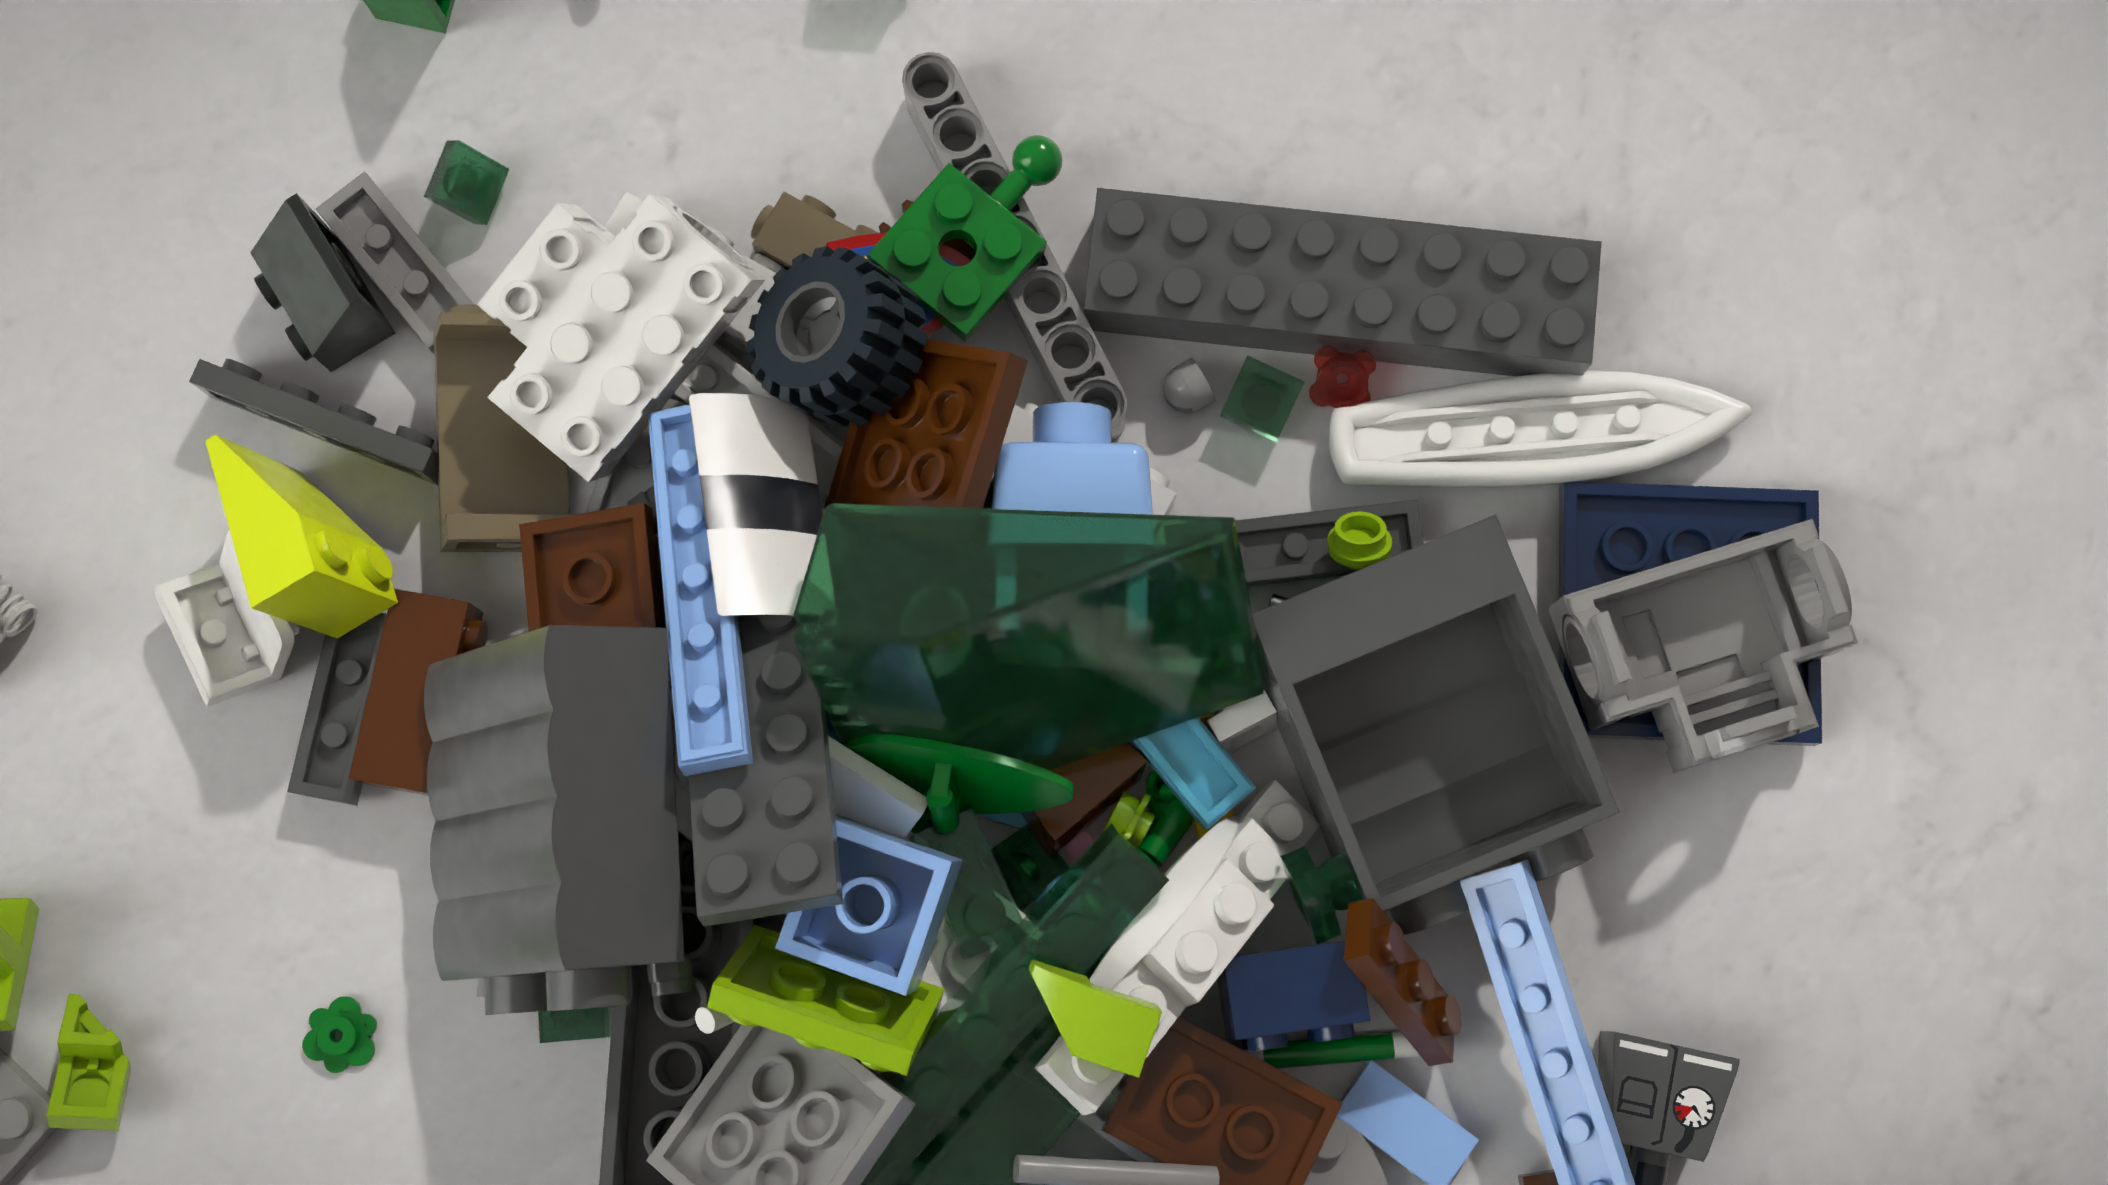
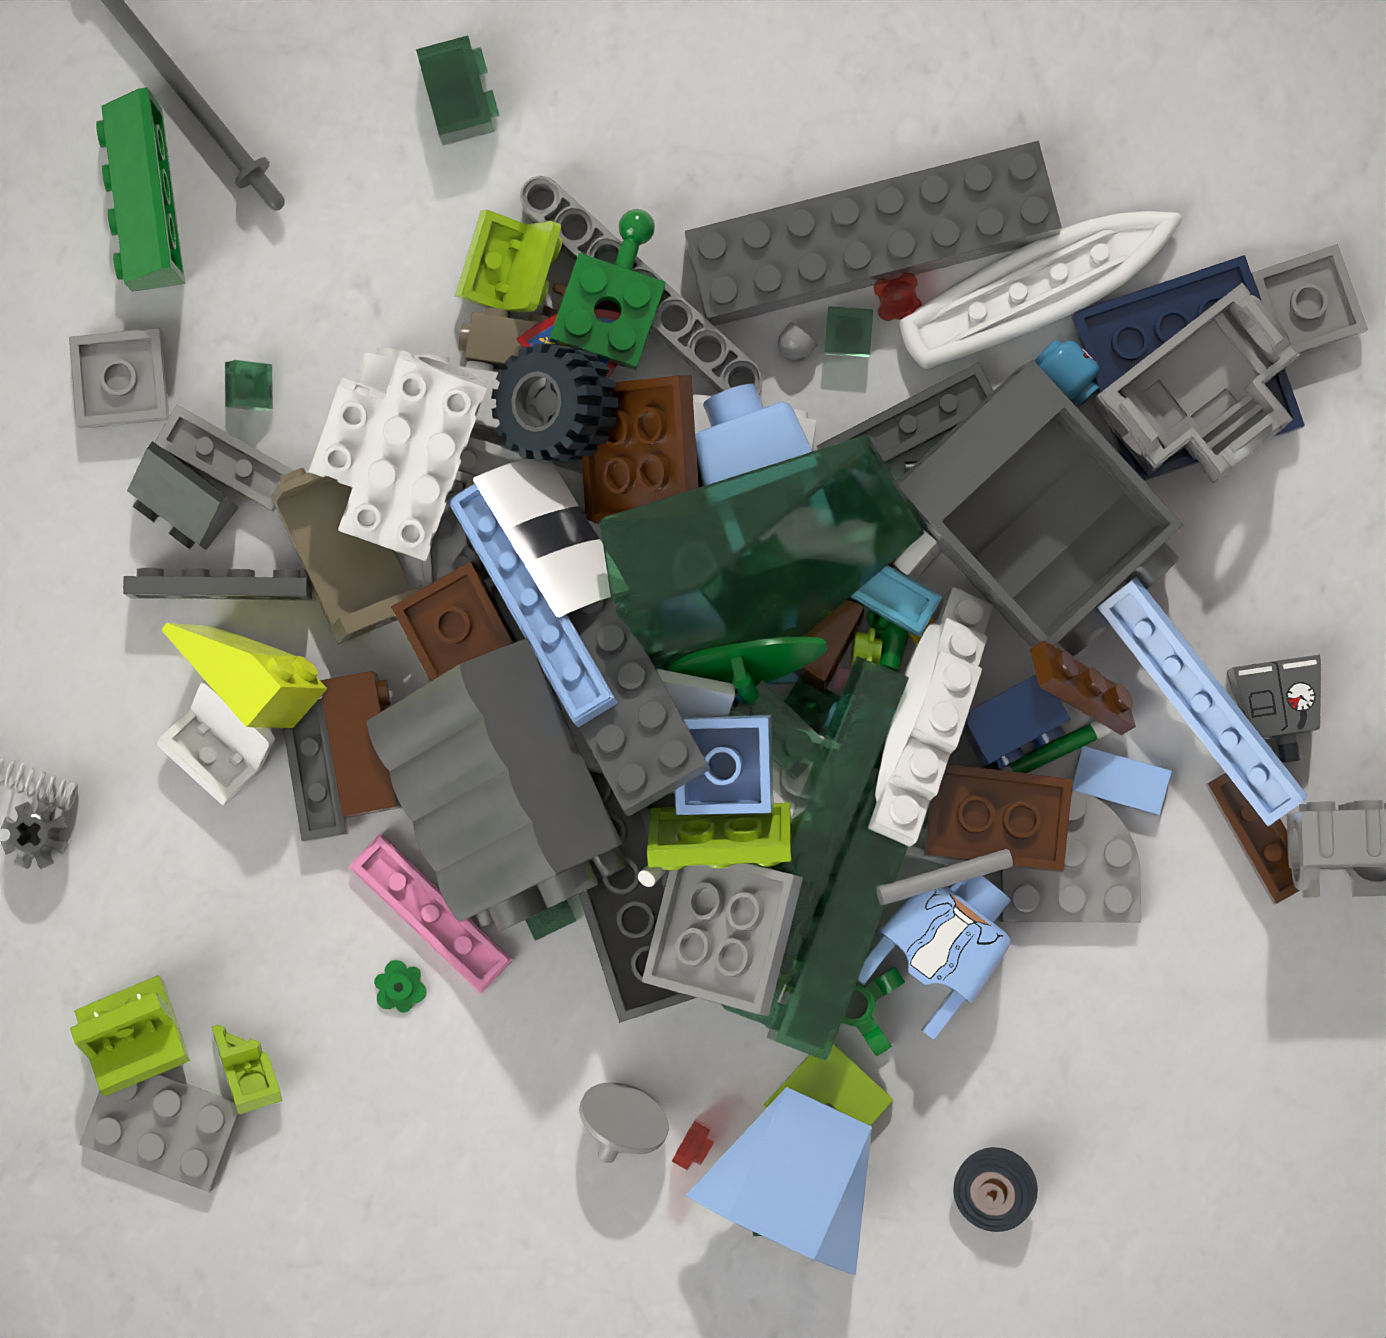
camera: 10 degrees left, 5 degrees up
(308, 114) = (119, 378): none -> light grey plate
(402, 919) = (424, 909): none -> bright pink tile
(855, 148) = (509, 263): none -> lime bracket
(1097, 1021) = (897, 782): lime slope -> none
(1320, 890) = (1008, 648): clear green tile -> none
(1359, 540) = (950, 406): lime plate -> none
(1538, 552) = (1070, 369): none -> dark azure head
(1894, 580) = (1312, 298): none -> light grey plate

